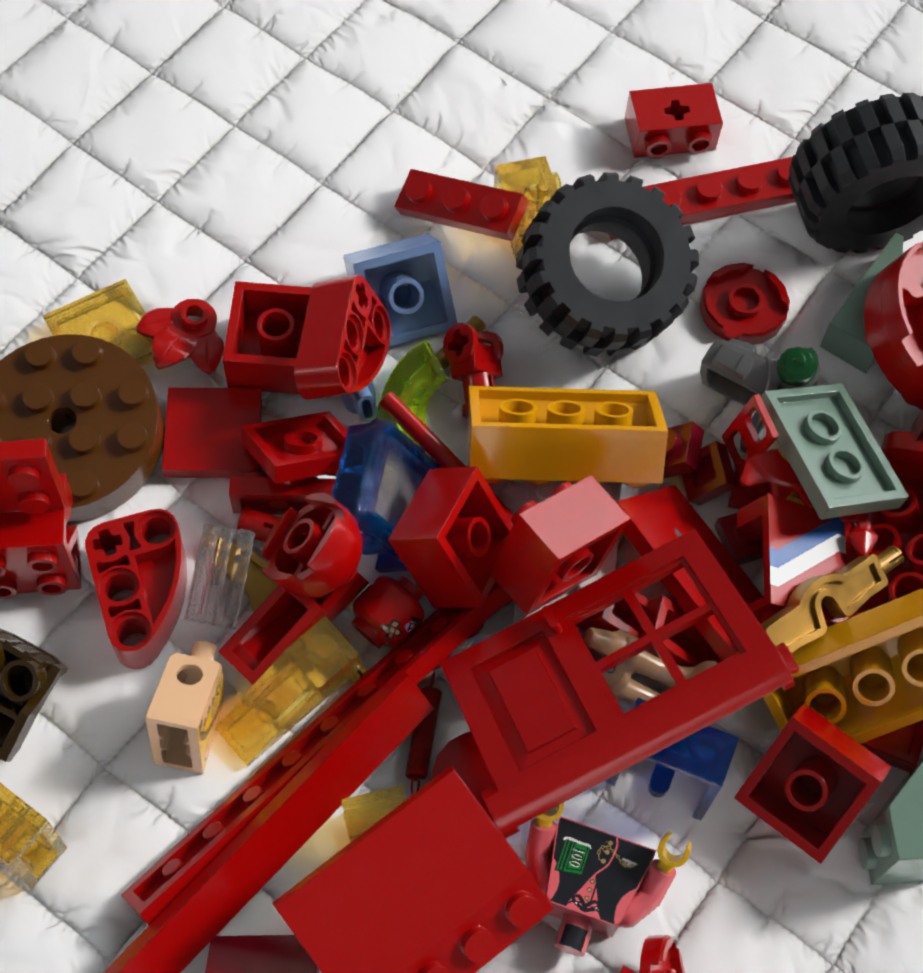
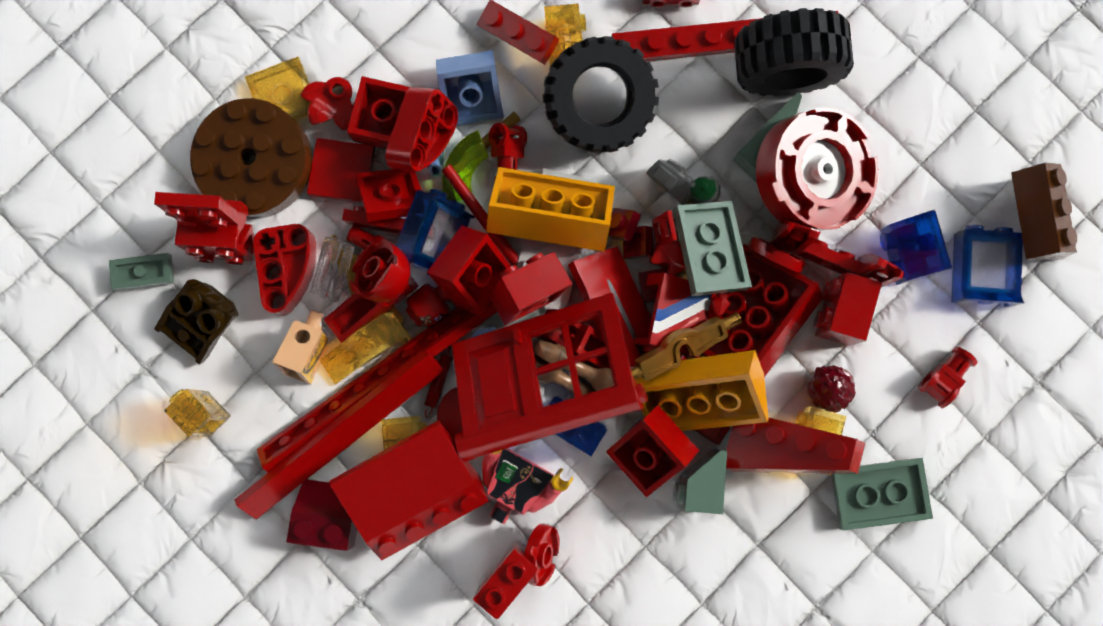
camera: 15 degrees right, 20 degrees up
(744, 303) = (690, 124): red tile -> none

